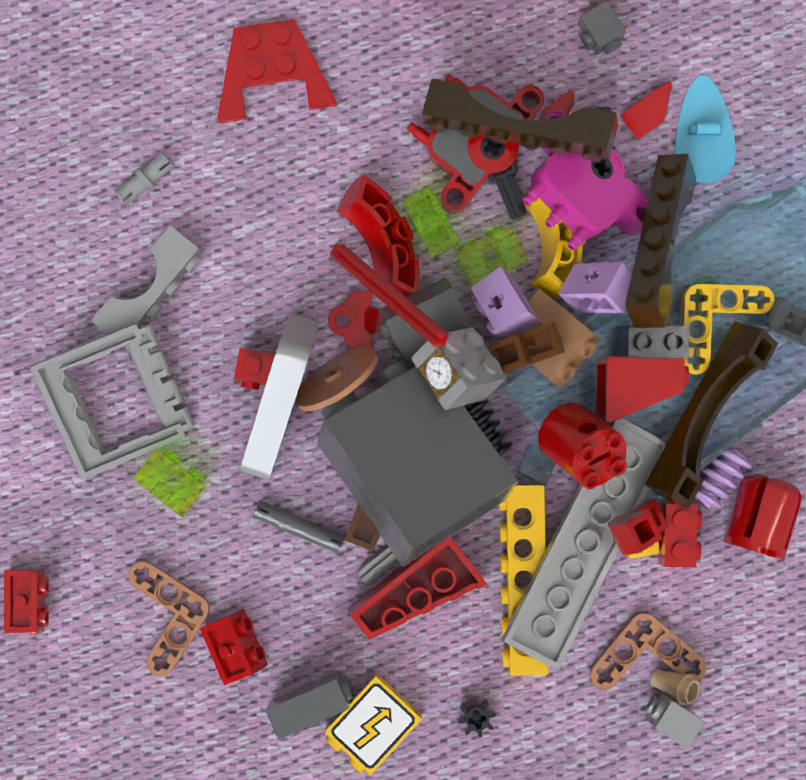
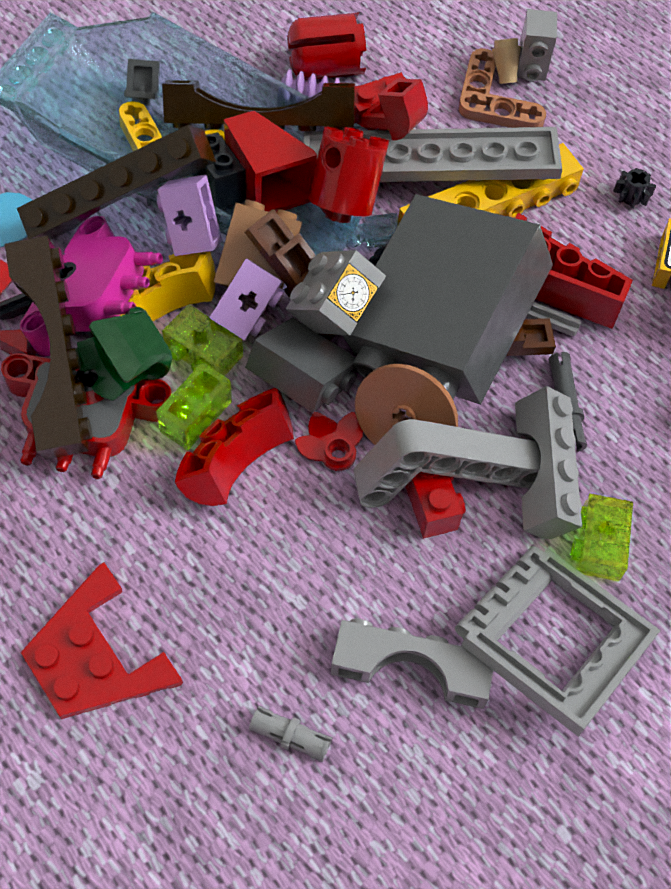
camera: 120 degrees left, 25 degrees down
(277, 491) = (553, 501): none -> light grey arch
(390, 296) = (294, 389): red axle -> none
(487, 179) = (124, 352): none -> dark green piece

